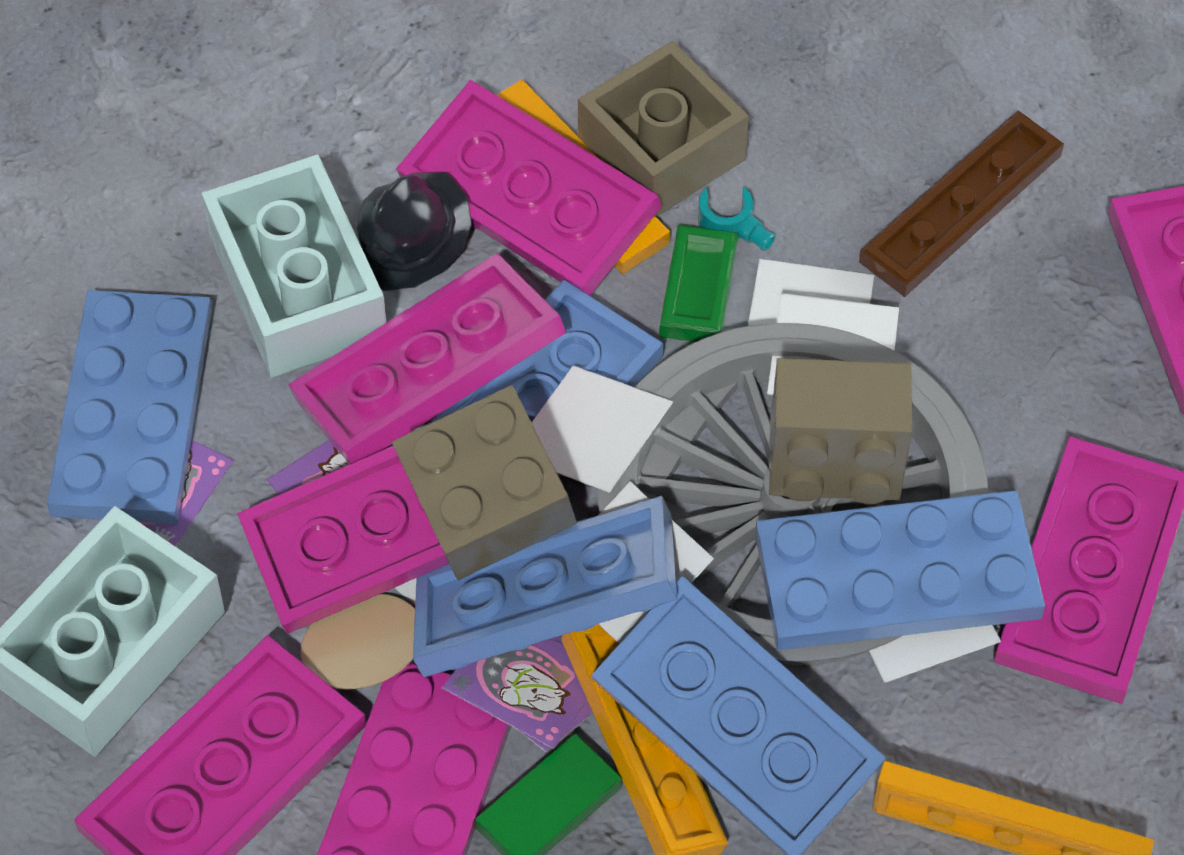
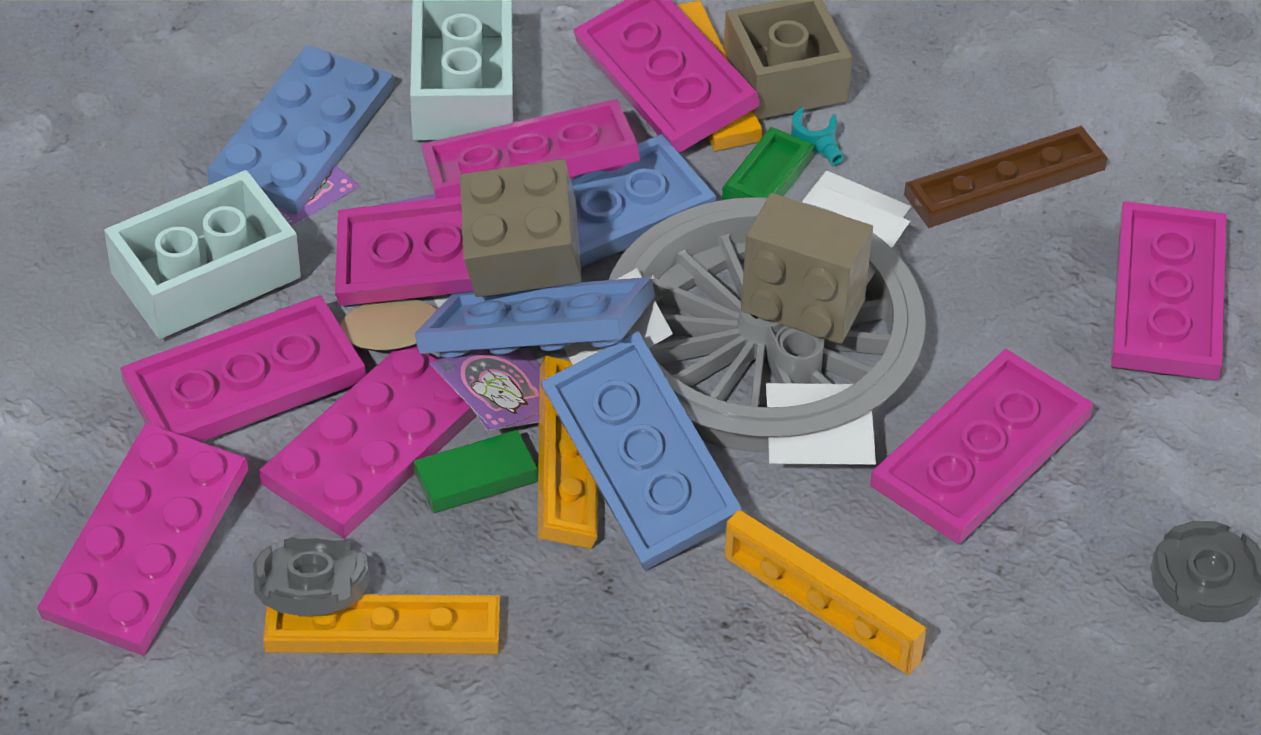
camera: 20 degrees right, 10 degrees down
(413, 228) = (562, 67): black piece -> none
(596, 426) = (630, 230): white sticker -> none
(898, 570) = (814, 386): medium blue plate -> none

